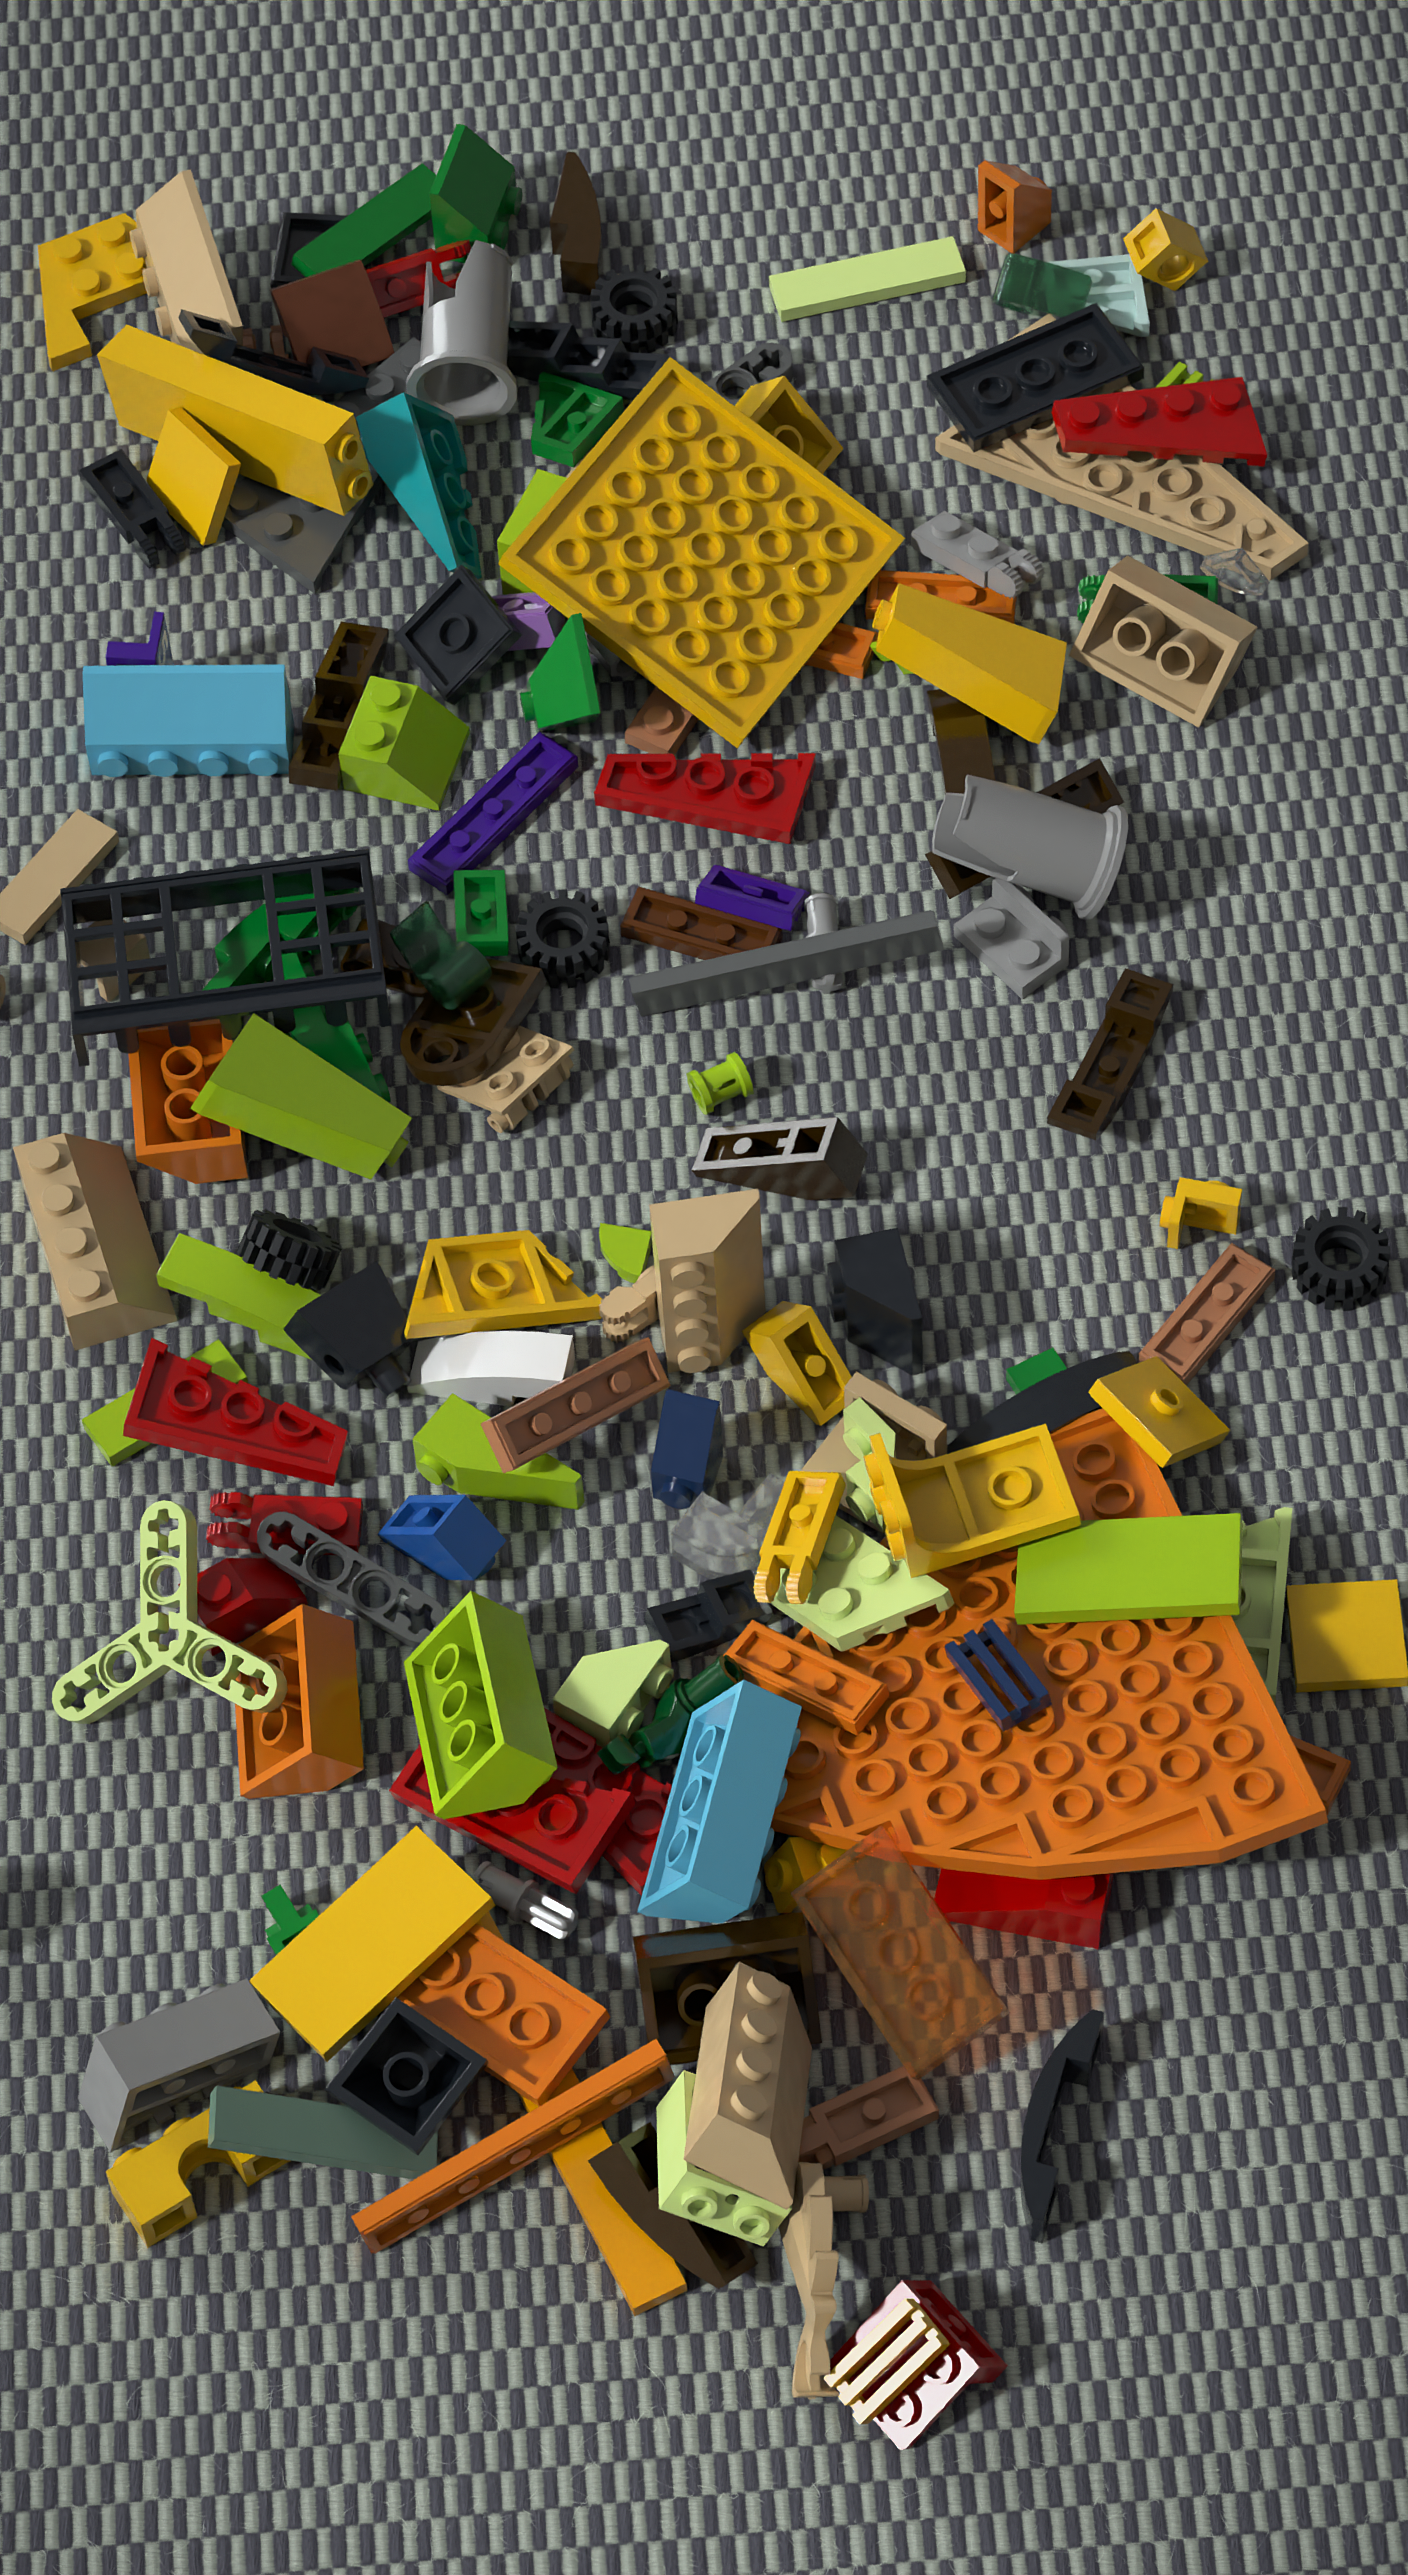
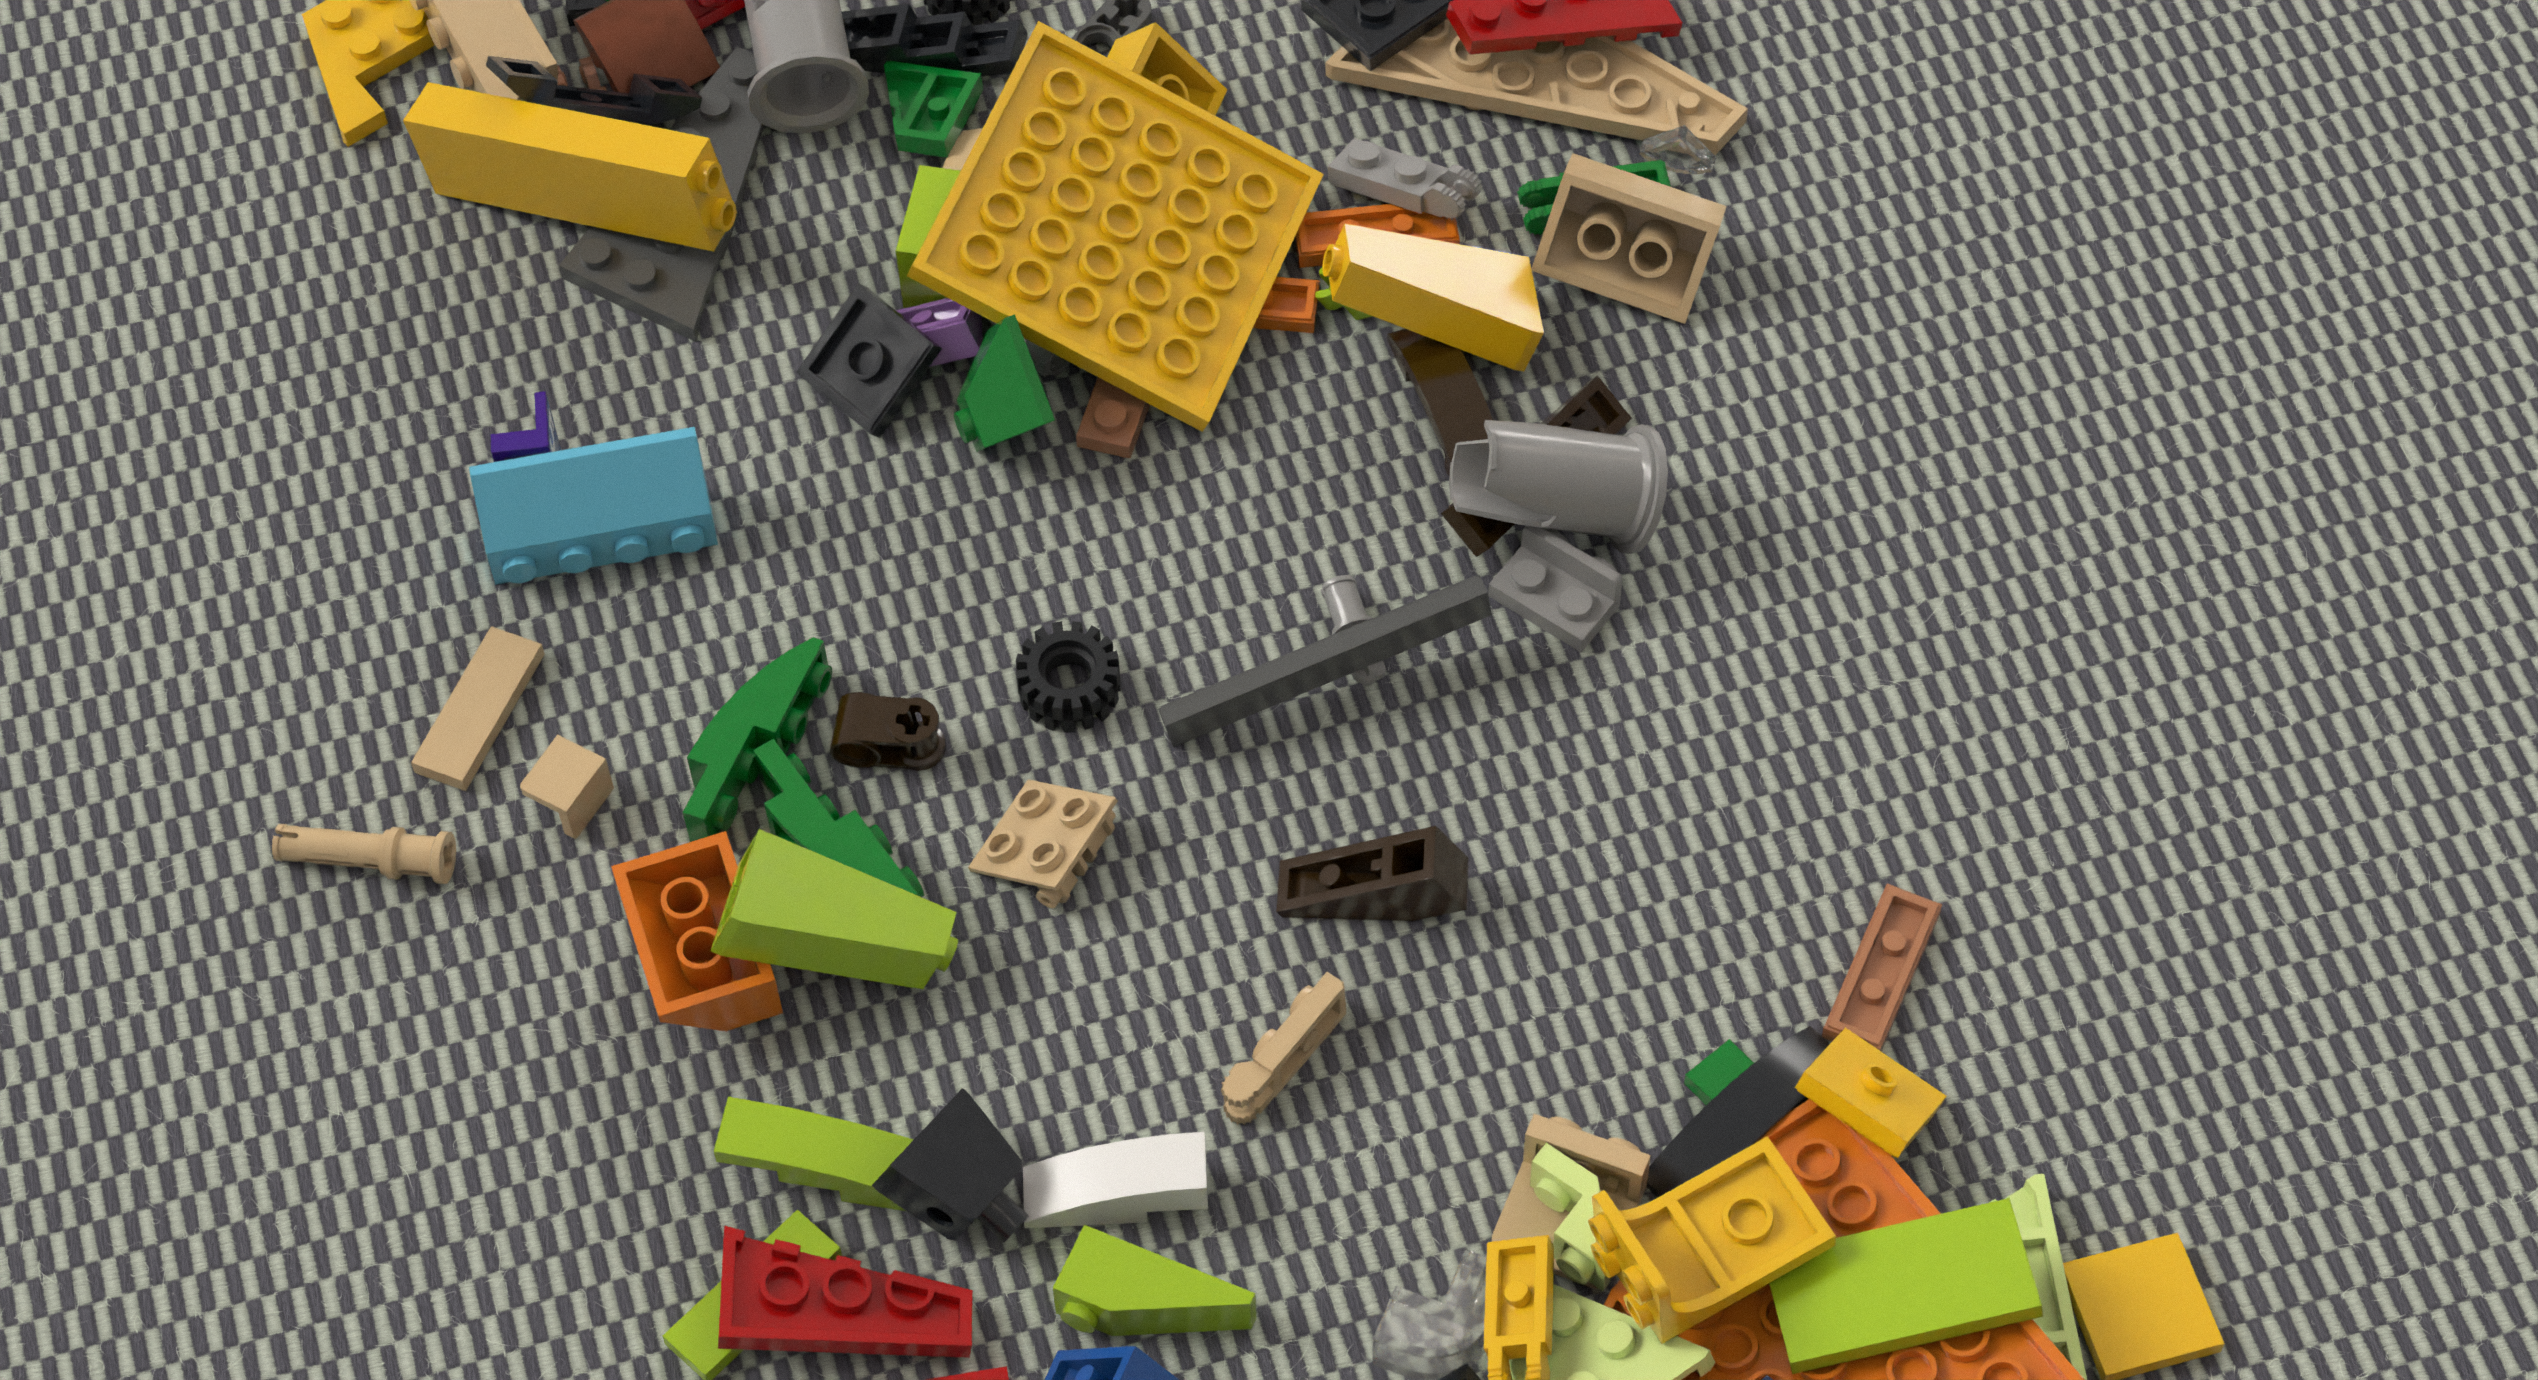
camera: 15 degrees left, 0 degrees up
(93, 1238) = (625, 1119): tan slope -> none
(131, 505) = (471, 279): black hinge -> none
(193, 475) = (535, 235): yellow tile -> none
(229, 1004) = (725, 822): black window -> none
(289, 1249) = (856, 1091): black tyre -> none
(339, 685) = (754, 461): dark brown slope -> none
(401, 745) = (836, 492): lime slope -> none
(421, 463) = (781, 179): teal wedge -> none
(444, 968) = (950, 734): clear green panel -> none
(474, 1030) = (988, 781): dark brown tile -> none
(481, 910) = (971, 664): green plate -> none
(493, 812) = (953, 550): dark purple tile -> none
(494, 1285) = (1095, 1088): yellow wing -> none
(575, 1405) = (1227, 1213): nougat tile -> none
(625, 1249) = (1227, 1017): lime tile -> none
(686, 1449) = (1364, 1240): dark blue slope -> none
(692, 928) = (1209, 638): reddish brown tile -> none
(707, 1275) = (1341, 1038): tan slope -> none
(720, 1083) = (1284, 807): lime bush -> none
(736, 796) = (1205, 484): red wing -> none
(751, 897) = (1262, 593): dark purple tile -> none
(800, 1359) = (1459, 1107): yellow slope -> none
(877, 1298) = (1532, 1023): black slope -> none
(1114, 1056) = (1700, 698): dark brown slope -> none
(1201, 1205) = (1845, 847): yellow bracket -> none
(1340, 1233) = (2016, 851): black tyre -> none

